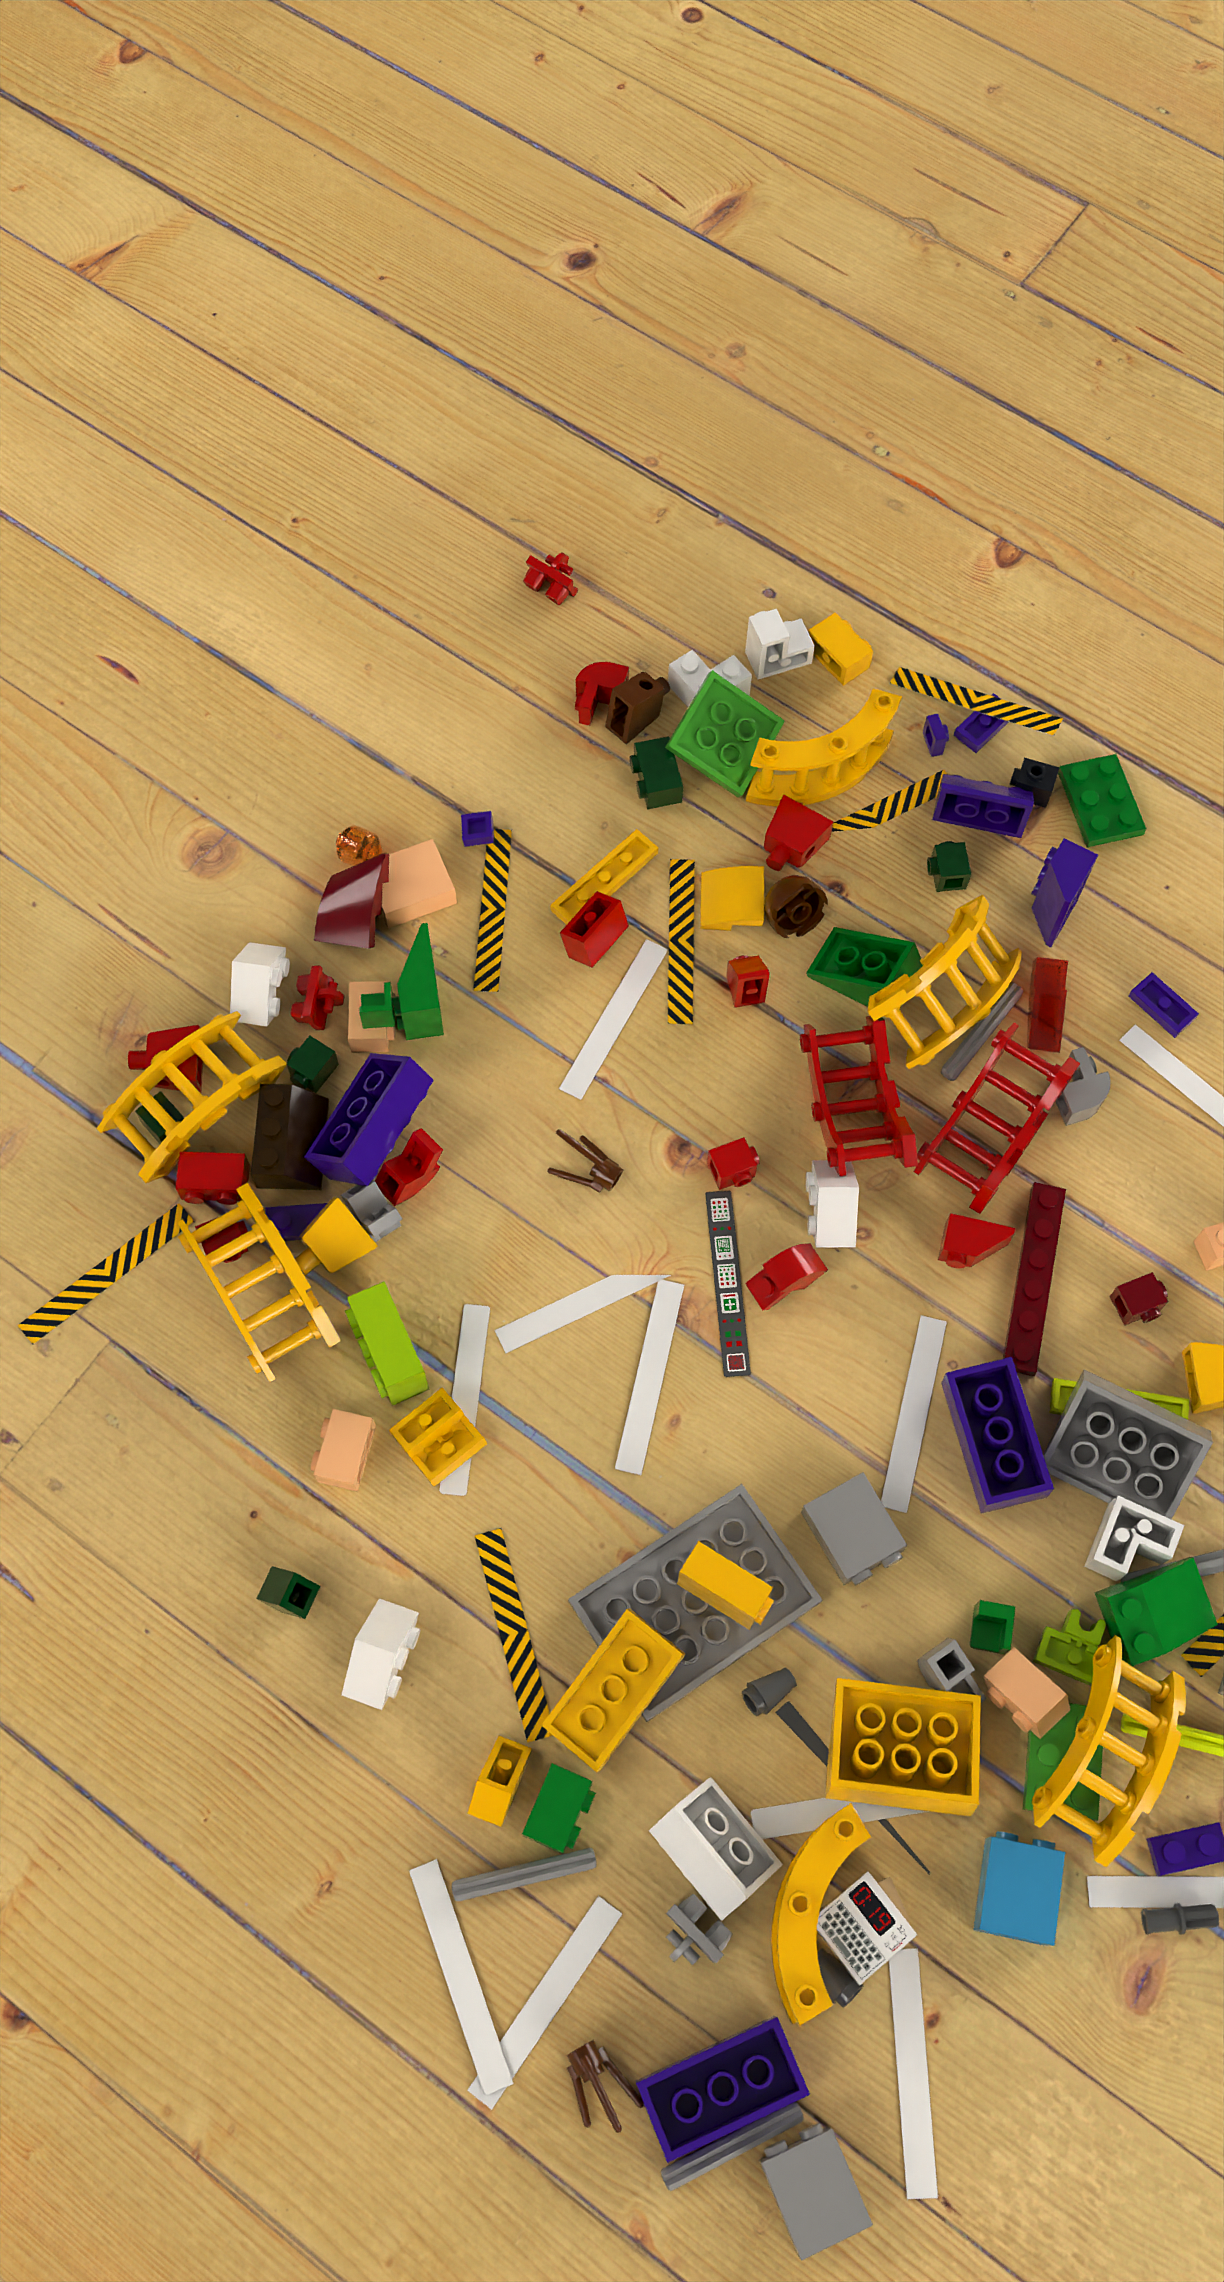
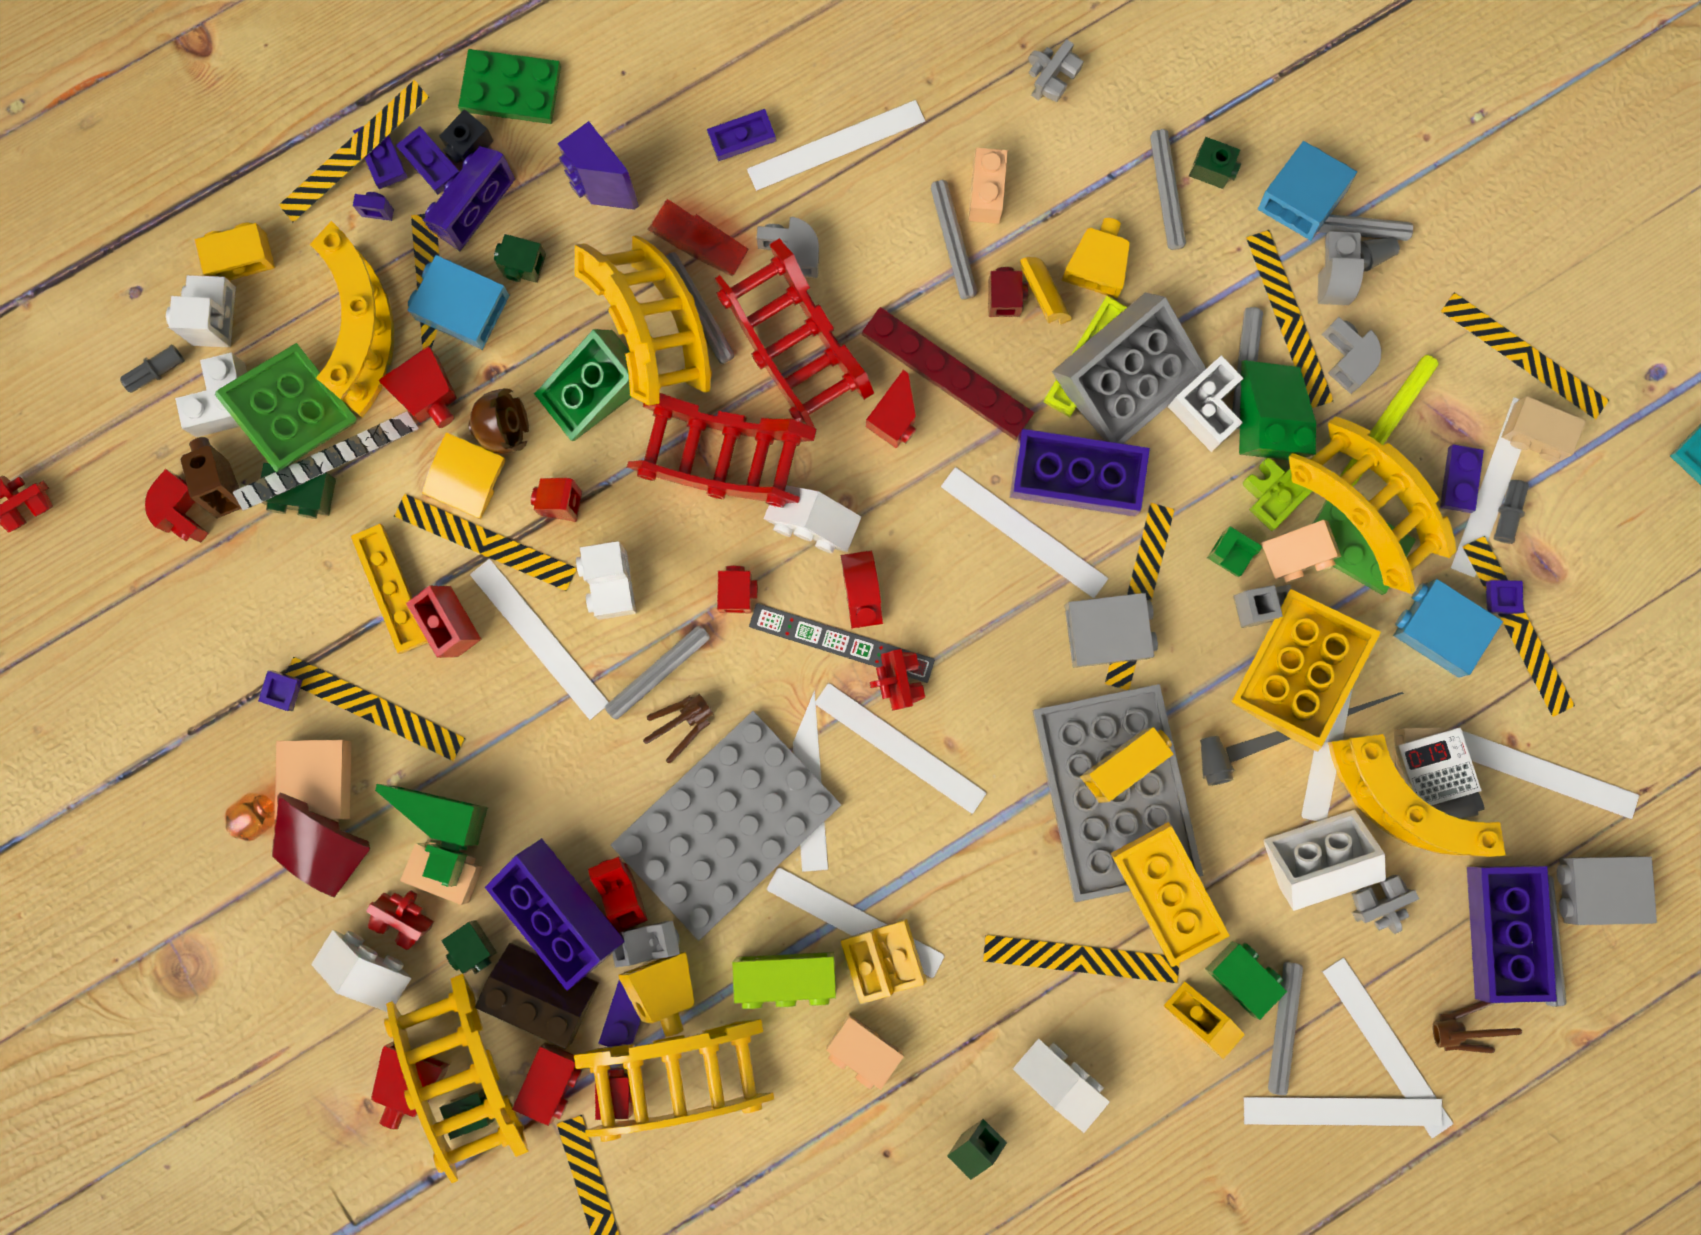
camera: 70 degrees left, 15 degrees up
(511, 1244) = (725, 825): none -> light grey plate
(627, 1127) = (657, 672): none -> light grey axle
(694, 783) = (324, 460): none -> sticker
(694, 1051) = (609, 577): none -> white brick
(710, 628) = (151, 369): none -> dark grey axle
(727, 1336) = (894, 679): none -> red hips
(885, 833) = (458, 302): none -> dark azure brick
(924, 1550) = (1144, 578): none -> sticker
(1000, 759) = (427, 159): none -> dark purple plate
(1058, 1979) = (1522, 633): none -> sticker
(1082, 1943) = (1504, 597): none -> dark purple plate
(1161, 1331) = (1044, 290): none -> yellow slope
(1166, 1232) = (953, 239): none -> light grey axle

